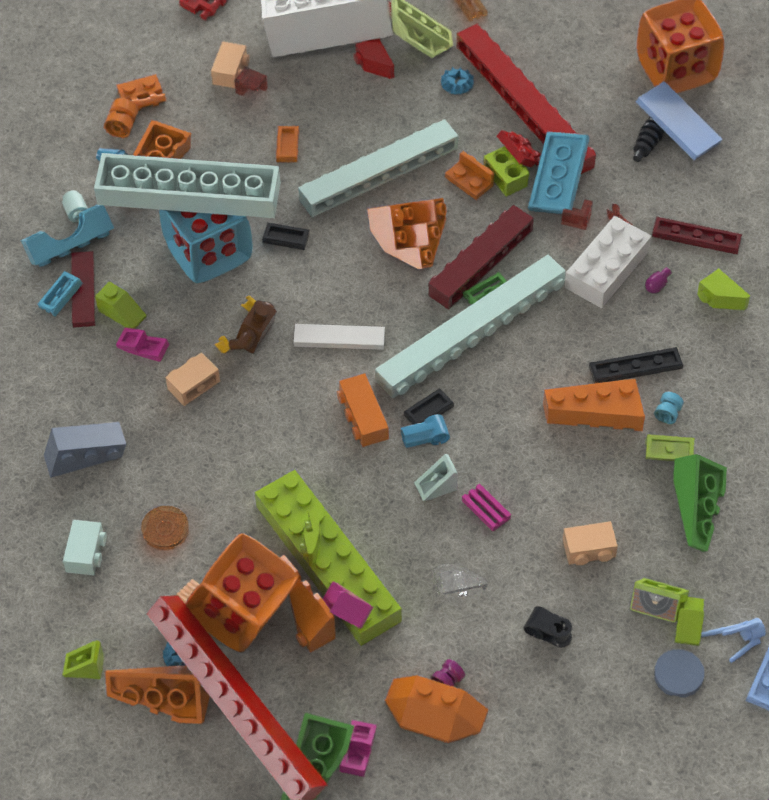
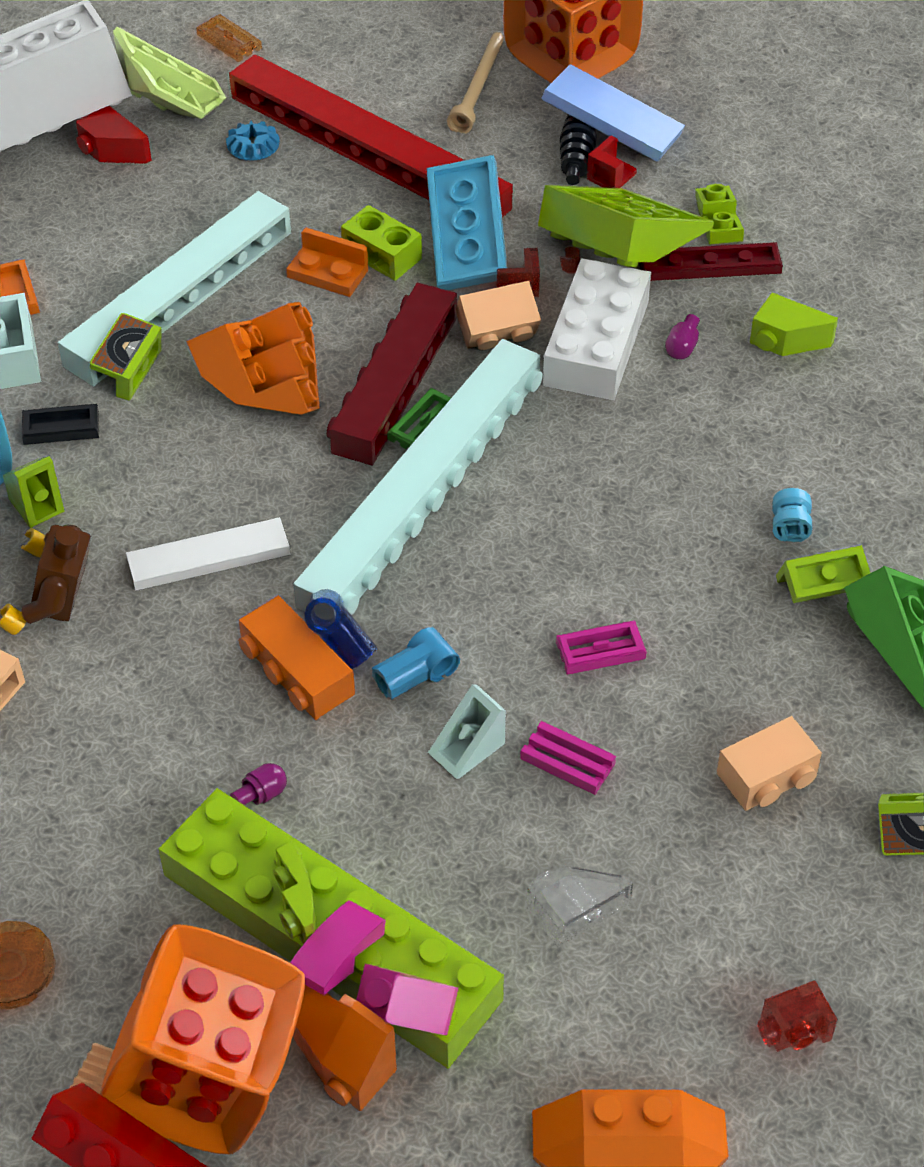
camera: 20 degrees left, 5 degrees down
(257, 274) = (35, 491): none -> lime slope
(318, 569) = (332, 948): none -> dark pink slope
(322, 473) = (262, 783): none -> magenta cylinder
(335, 204) = (128, 353): none -> panel
(390, 403) = (342, 631): none -> clear blue piece
(431, 405) = (403, 621): black tile -> none
(449, 674) = (632, 1066): magenta wheel -> none
(520, 148) = (392, 204): red plate -> none
(530, 456) = (602, 652): none -> dark pink tile
(542, 676) = (797, 1018): none -> clear red brick
(549, 627) = (762, 926): black piece -> none
(553, 238) = (498, 315): none -> light nougat brick
(588, 97) = (462, 116): none -> tan piece
(597, 404) = (678, 541): orange wedge -> none
(636, 365) = (707, 469): black tile -> none
(649, 197) = (618, 222): none -> lime slope
(662, 155) = (606, 169): none -> red panel
(716, 205) = (719, 205): none -> lime slope

